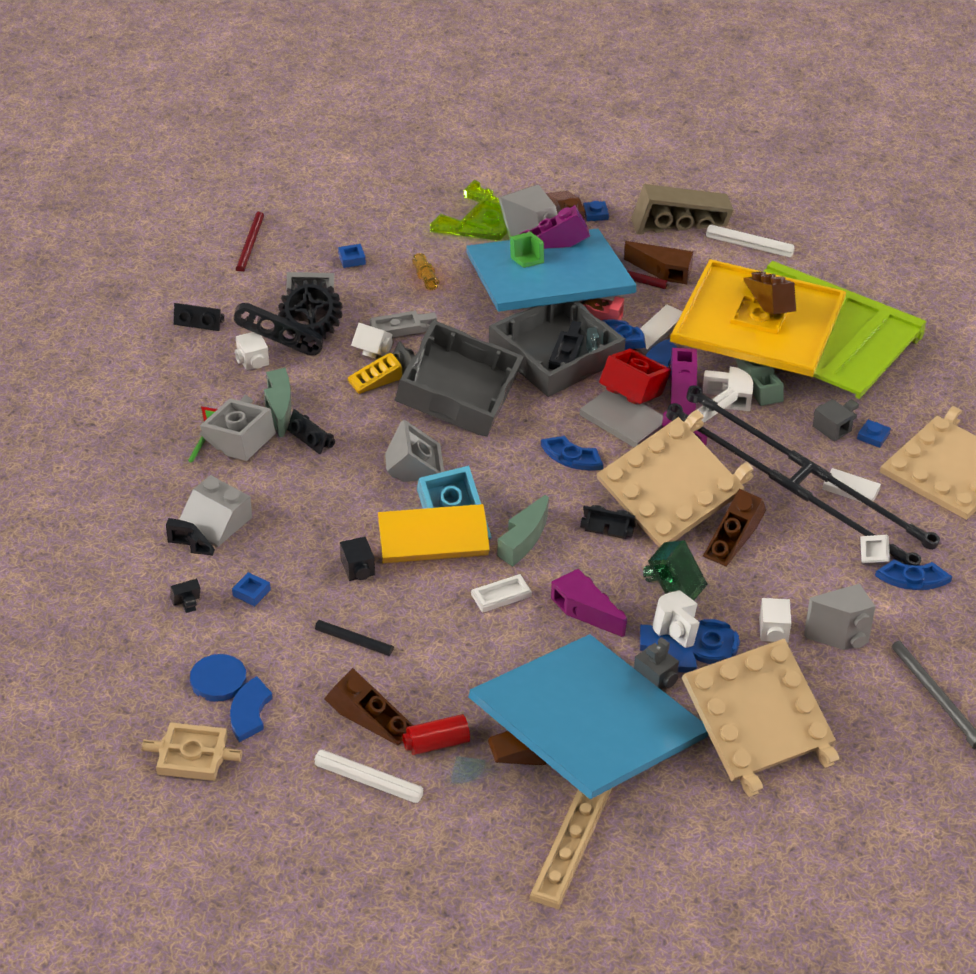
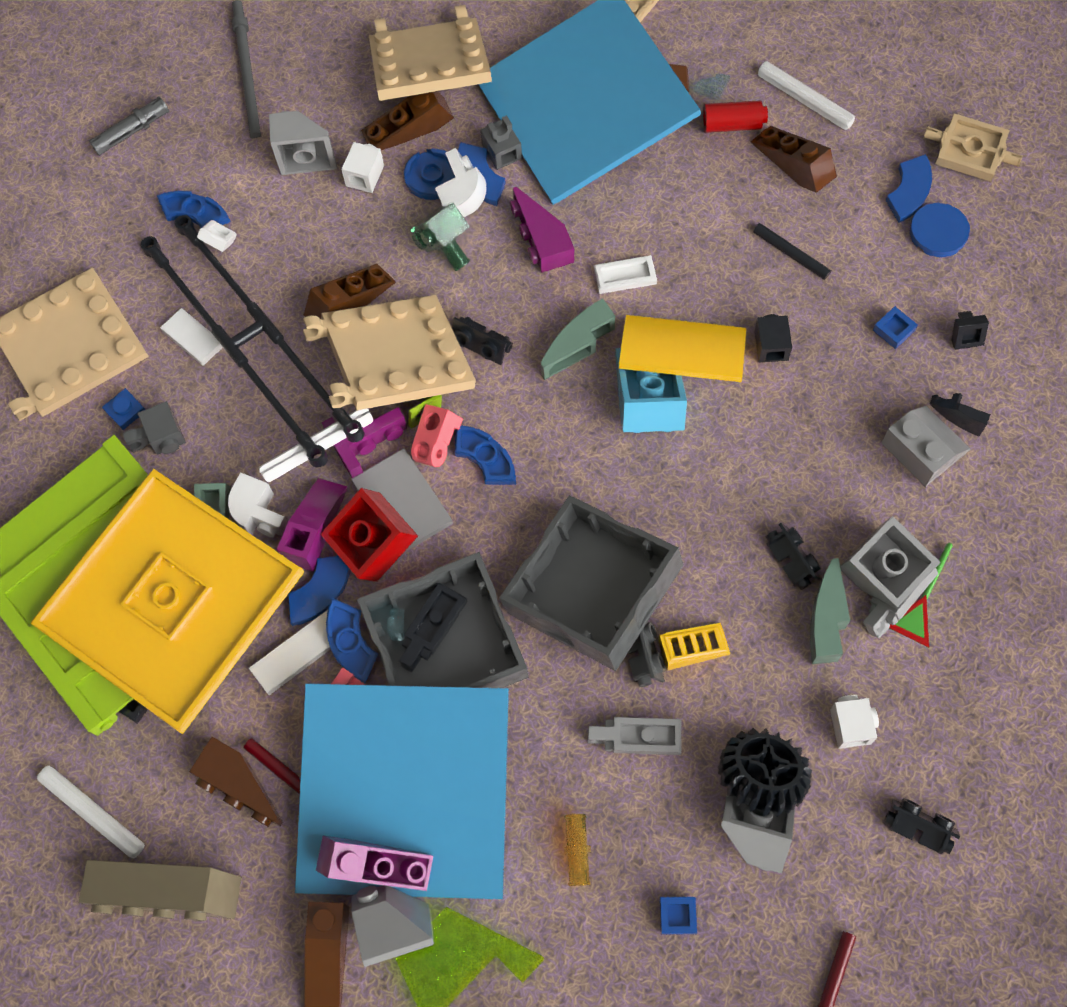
camera: 160 degrees left, 25 degrees up
(280, 325) = (818, 732): black beam -> none
(372, 340) = (686, 698): white brick -> none
(413, 454) = (674, 475): light grey slope -> none
(527, 249) = (426, 817): bright green panel -> none
(596, 211) = (280, 945): blue plate -> none
(614, 446) = (434, 435): none -> coral leg
(772, 292) = (136, 614): reddish brown slope -> none

